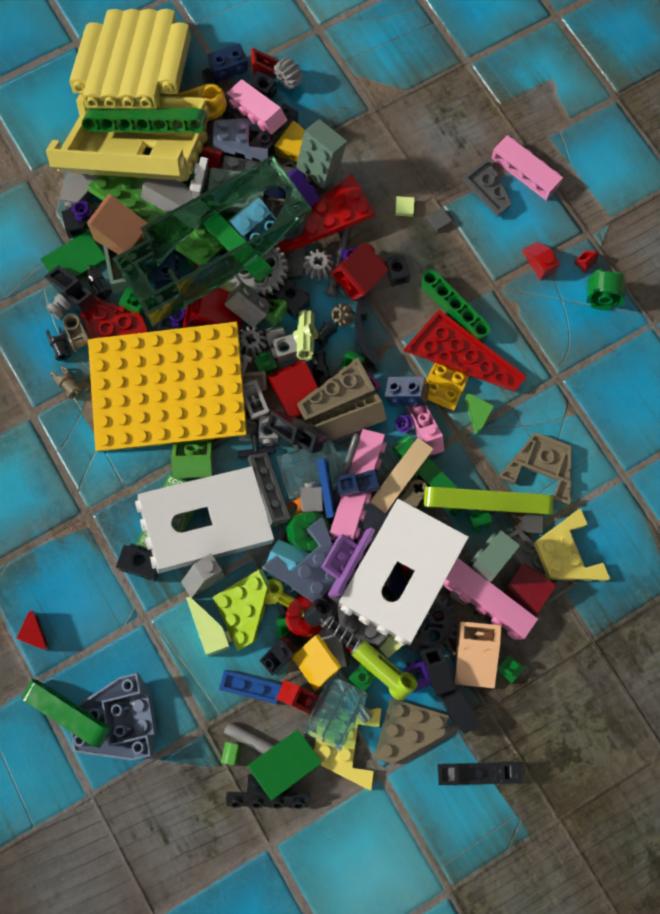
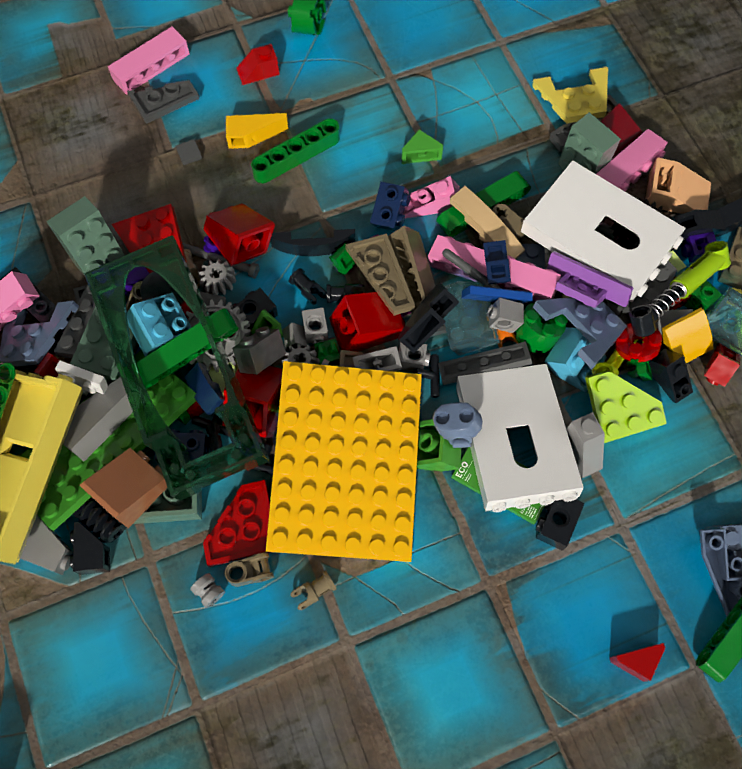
camera: 80 degrees left, 5 degrees down
(59, 345) = (259, 595): black piece -> none
(71, 289) = (188, 568): black slope -> none
(75, 256) = (143, 567): green tile -> none
(81, 205) = (74, 539): dark purple plate -> none
(97, 281) = (181, 537): black piece -> none
(128, 301) = (213, 493): green brick -> none
(202, 463) = (458, 421): none -> sand blue piece
(210, 632) = (649, 448): yellowish green slope -> none
(250, 687) = (706, 416): blue tile -> none
(290, 142) = (55, 279): yellow torso -> none
(305, 335) = (306, 298): yellowish green piece -> none
(343, 315) = (283, 265): dark tan gear -> none
(400, 423) = (425, 225): dark purple plate -> none
(401, 277) = (240, 191): black brick -> none
(404, 206) = (163, 182): yellowish green tile -> none
(445, 386) = (383, 169): yellow slope -> none
(455, 348) = (343, 160): red wing -> none
(468, 263) = (249, 130): none -> yellow slope
(479, 518) = (536, 166): green tile -> none
(488, 500) = (522, 152): lime beam -> none
(510, 669) = (694, 163): green tile -> none
(532, 523) = (543, 123): dark grey tile -> none
(546, 458) = (476, 100): dark tan wing -> none
(586, 260) = (267, 29): red slope -> none

